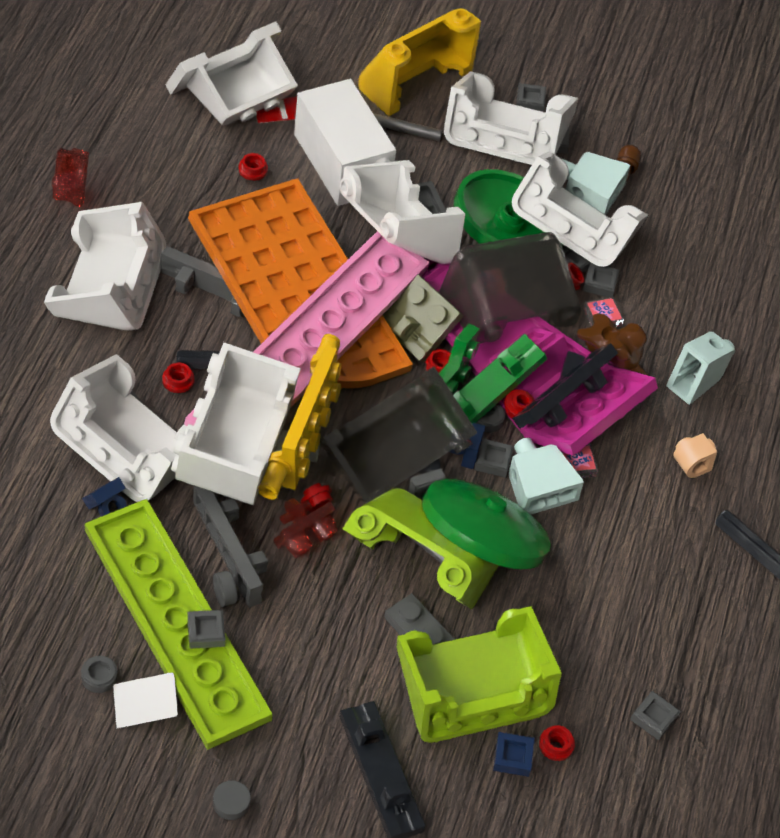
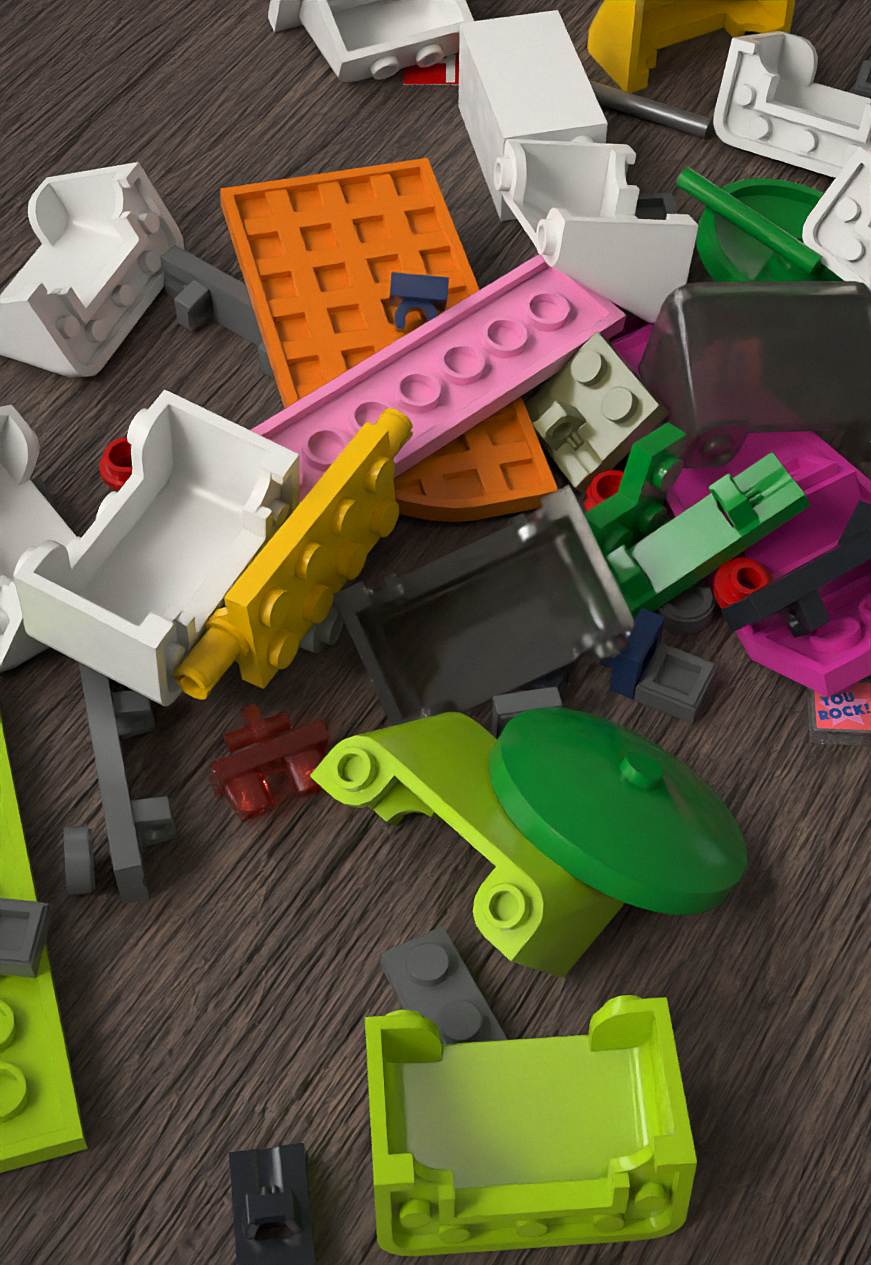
camera: 20 degrees right, 0 degrees up
(70, 176) = (53, 123): clear red hips -> none
(253, 167) = (370, 144): red plate -> none
(317, 264) = (417, 293): none -> dark blue tile
(317, 496) = (311, 704): red plate -> none
(482, 199) = (749, 220): none -> green bar
(542, 477) = (763, 733): light aqua torso -> none

